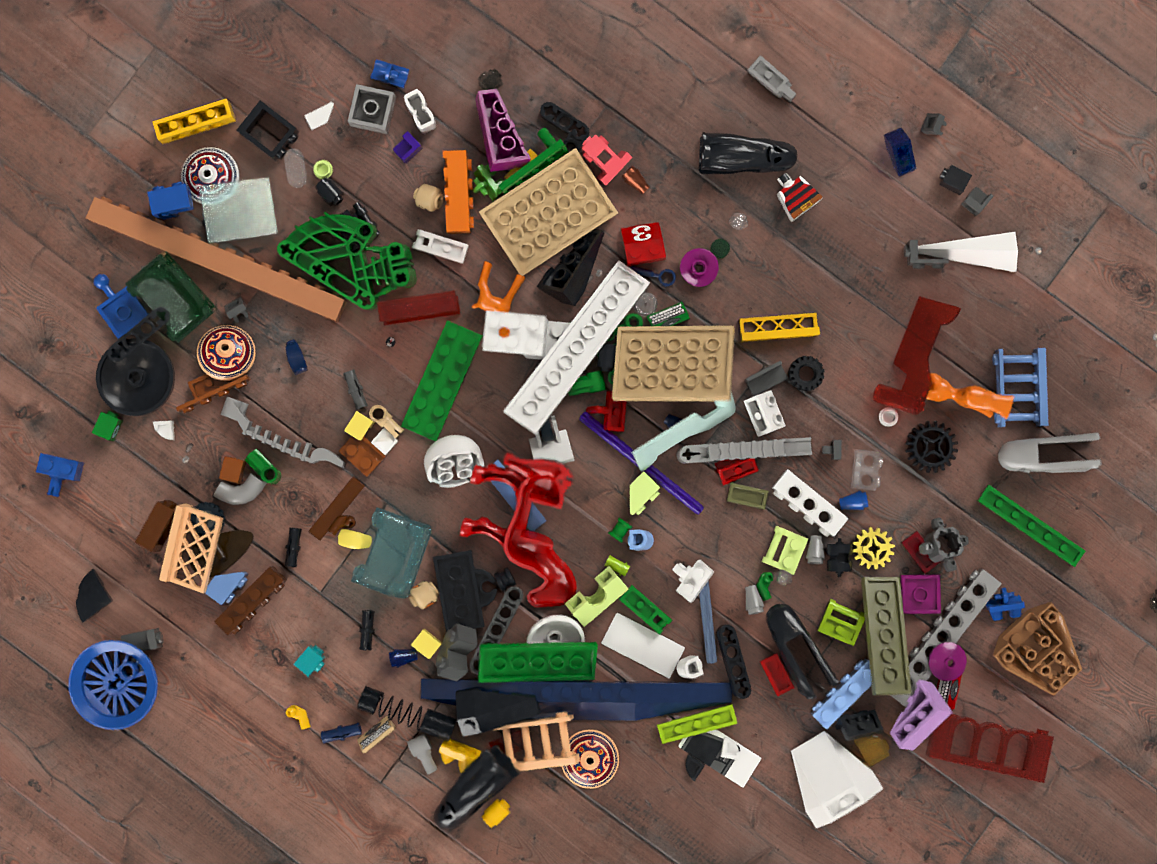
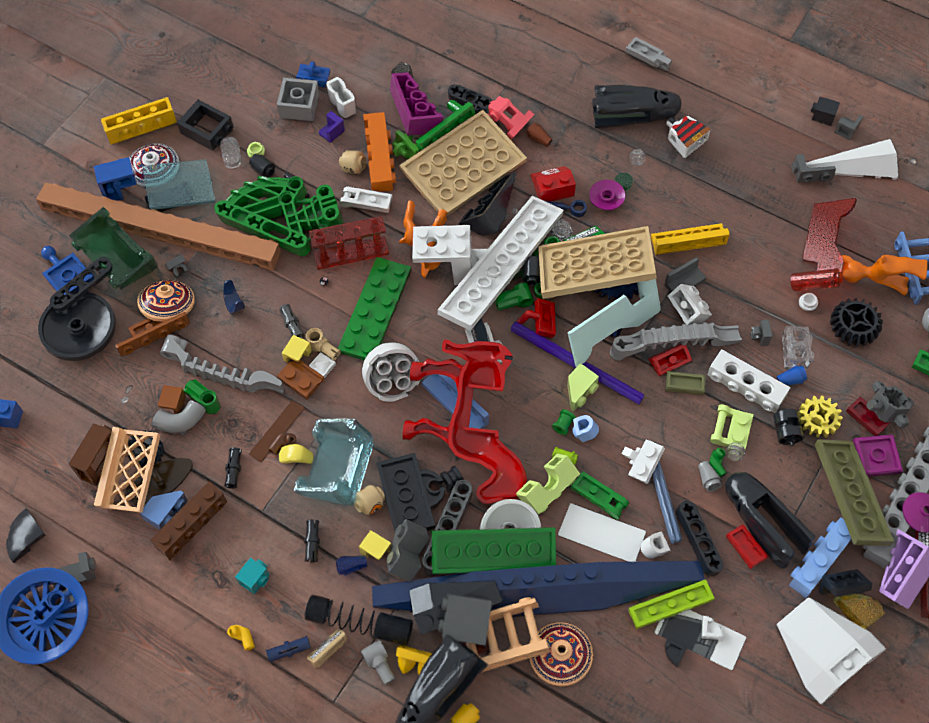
camera: 10 degrees left, 25 degrees down
(107, 425) = (47, 372): green brick -> none
(165, 429) = (105, 373): white tile -> none
(319, 116) = (252, 114): white sticker -> none
(504, 731) = (465, 618): none -> dark grey piece
(812, 363) = (726, 263): black tyre -> none
(815, 550) = (763, 425): light grey cone -> none
(838, 628) = (802, 495): lime plate -> none
(900, 151) = (772, 94): clear blue slope -> none
(933, 124) = (796, 73): dark grey tile -> none

